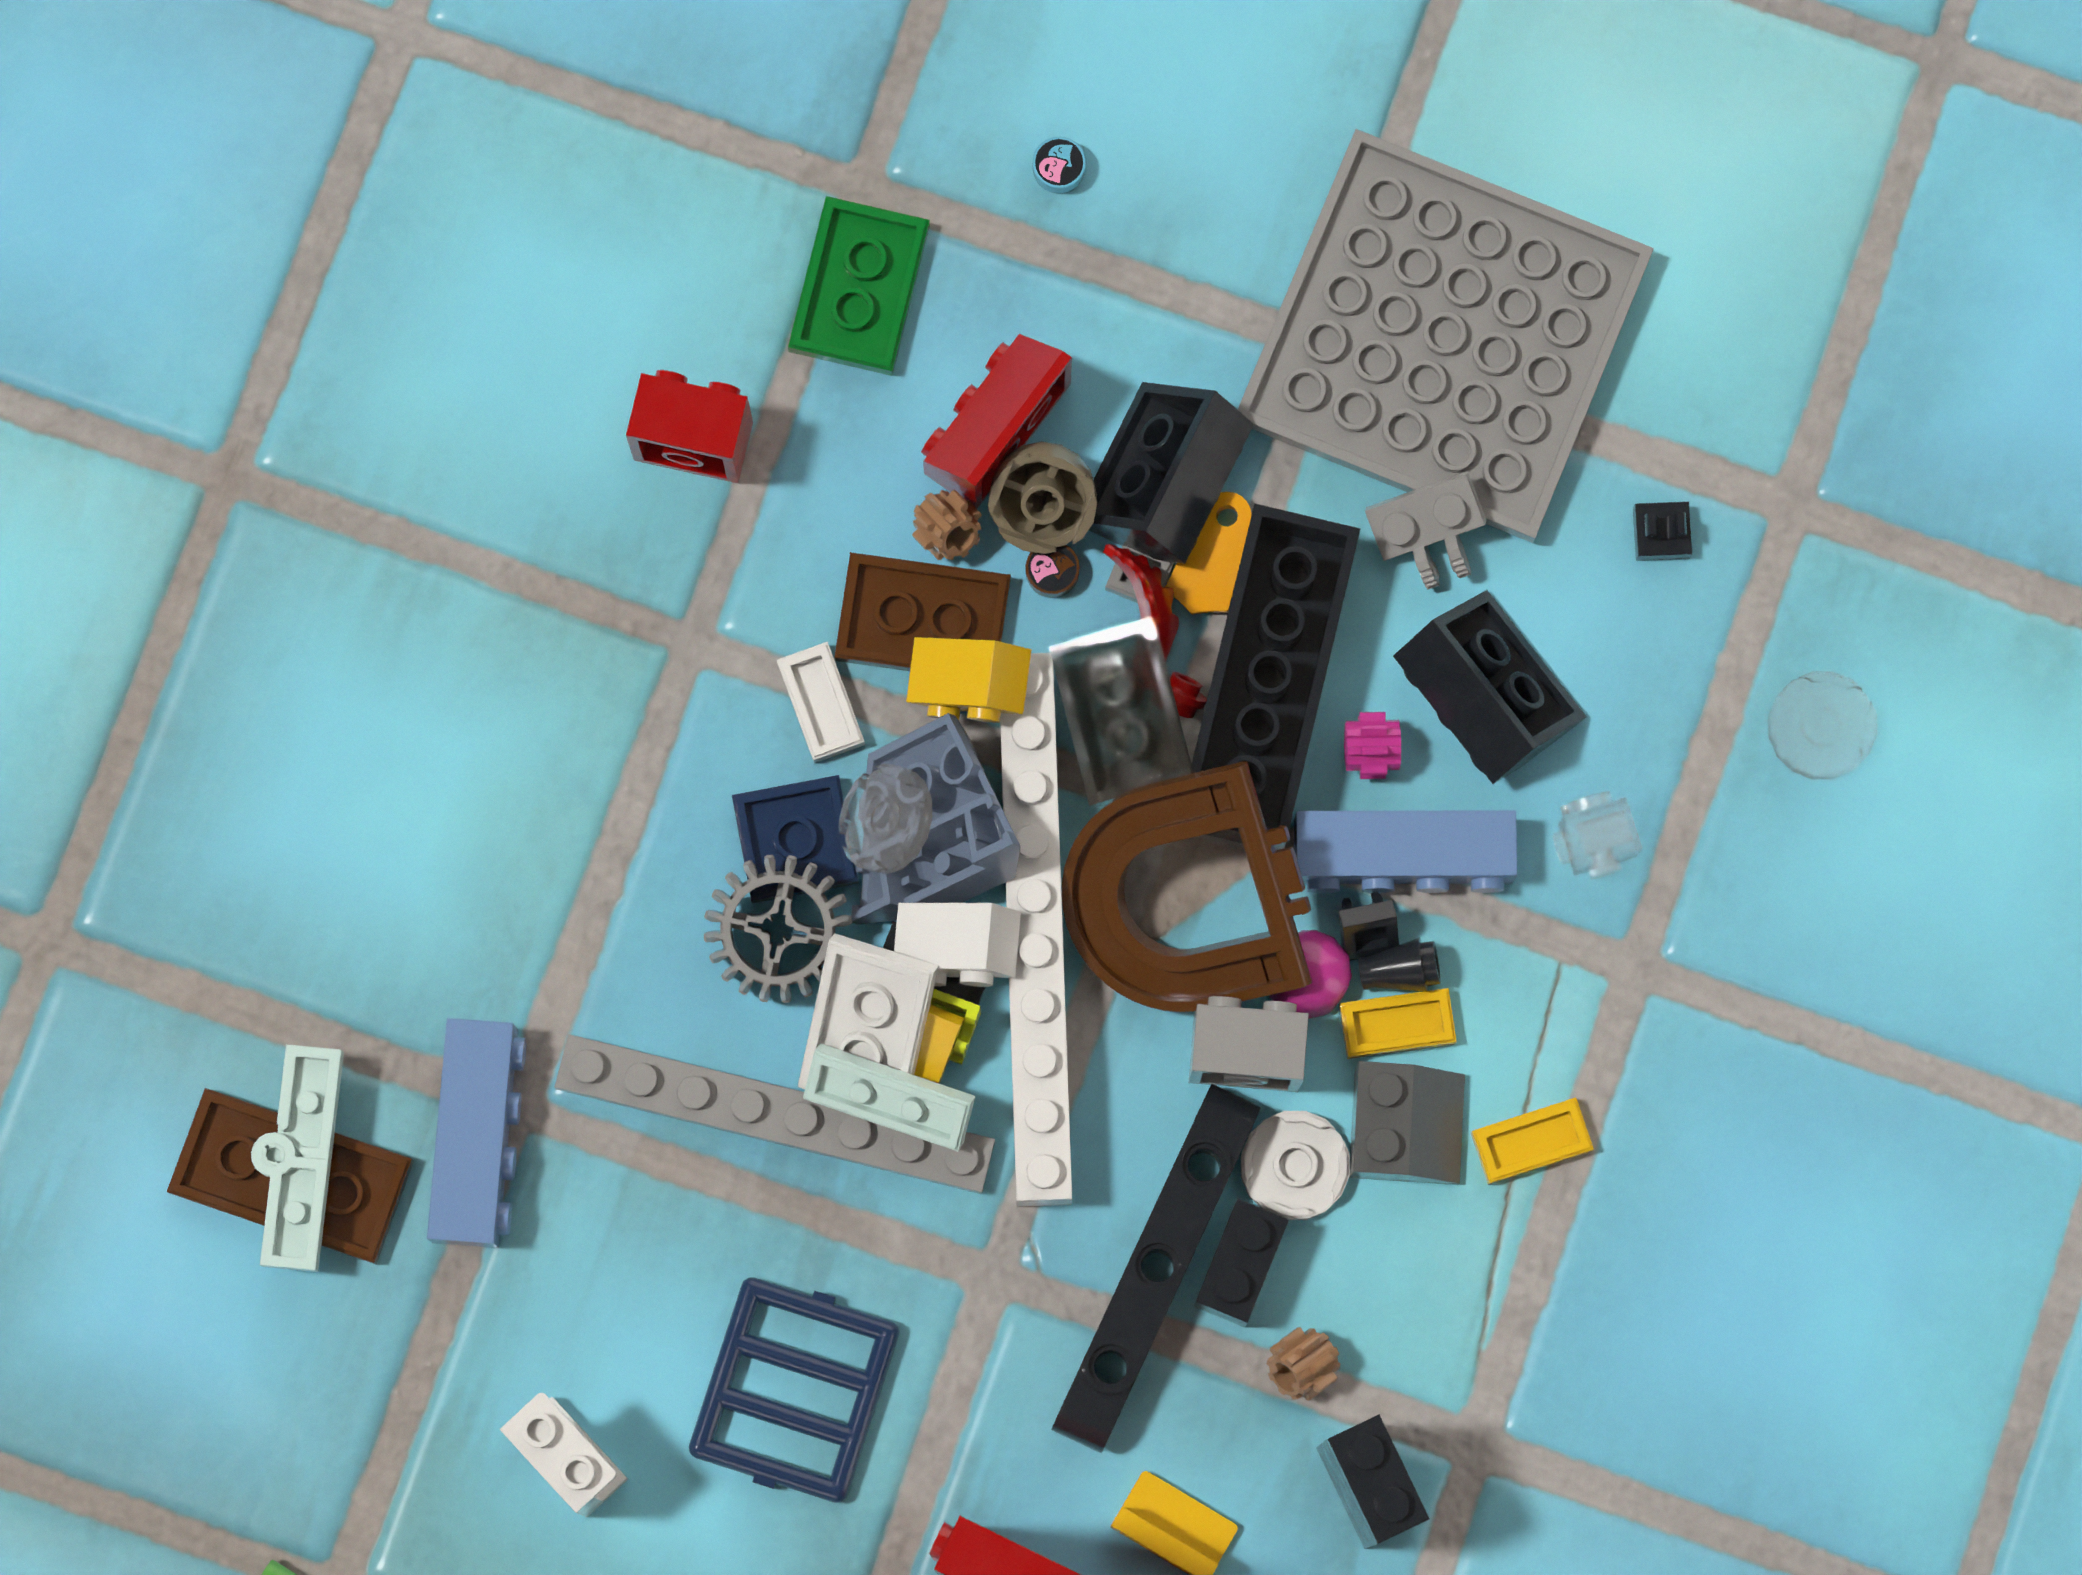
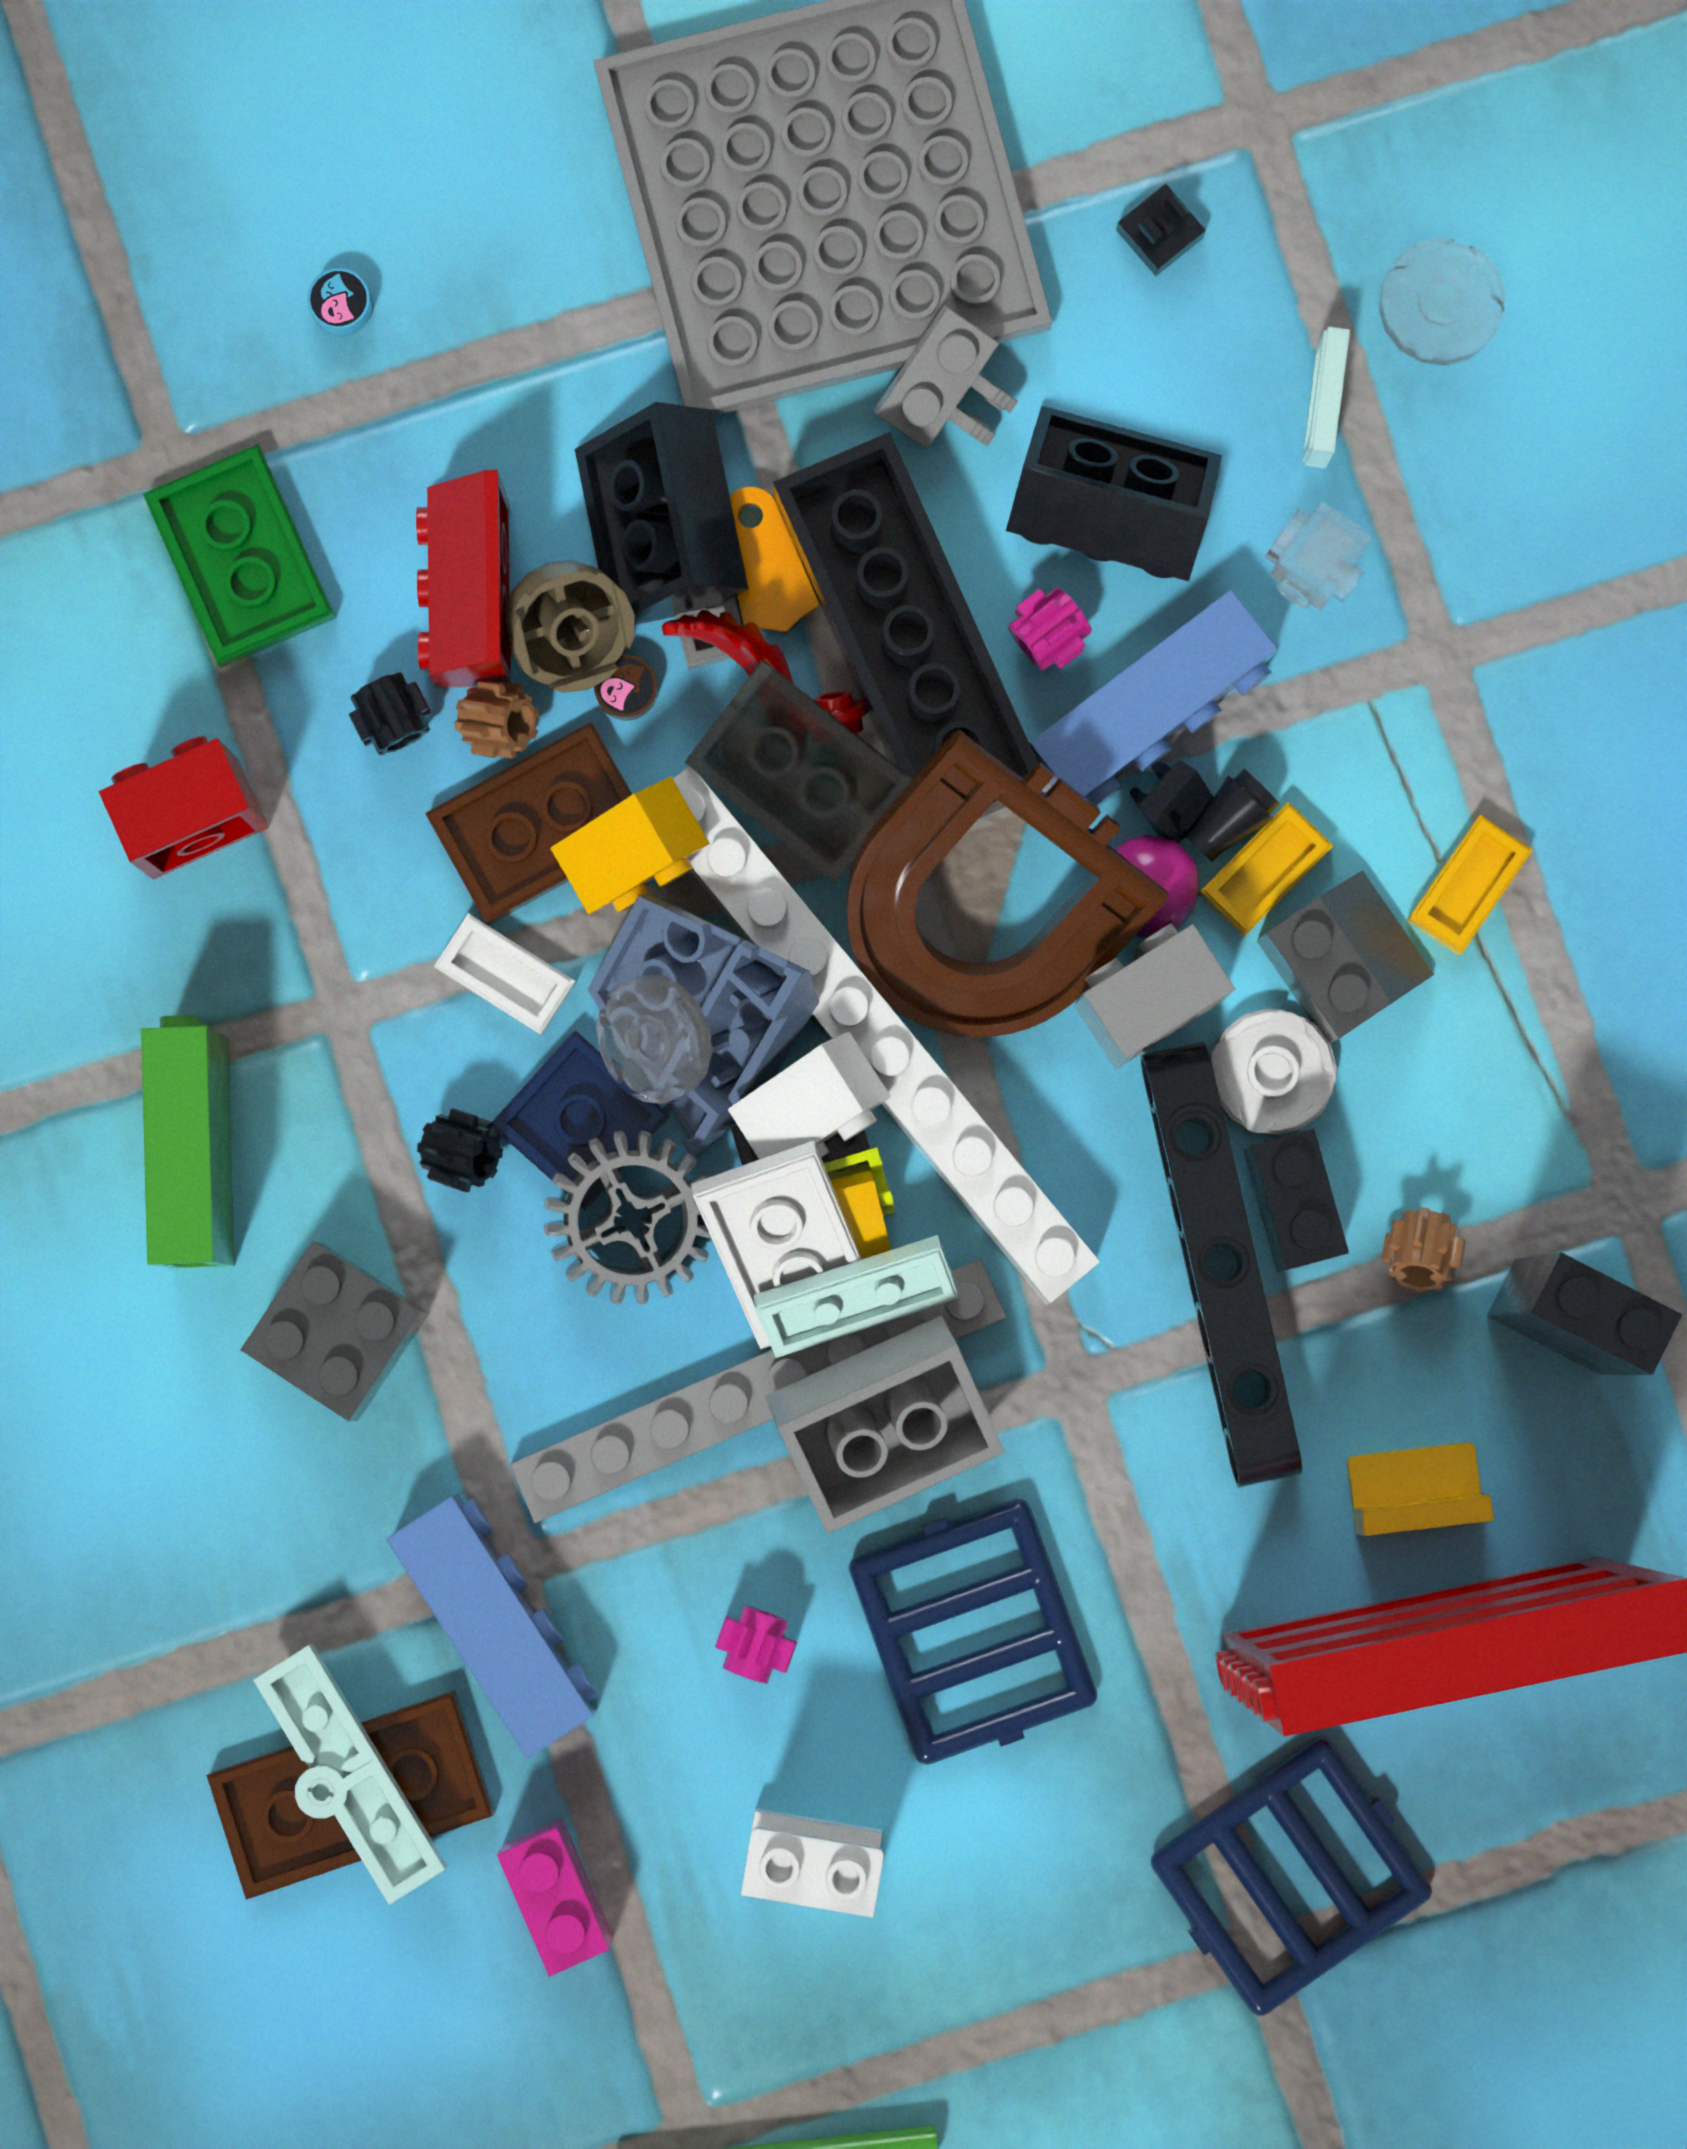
camera: 40 degrees left, 5 degrees up
(374, 1348) = (555, 1897): none -> dark pink brick
(518, 654) = (187, 1144): none -> bright green brick
(520, 854) = (334, 1331): none -> dark grey brick
(639, 1282) = (755, 1644): none -> dark pink gear
(698, 796) = (460, 1150): none -> black gear
(840, 1197) = (884, 1424): none -> light grey brick
(877, 467) = (390, 713): none -> black gear
(1686, 729) = (1325, 397): none -> light aqua tile

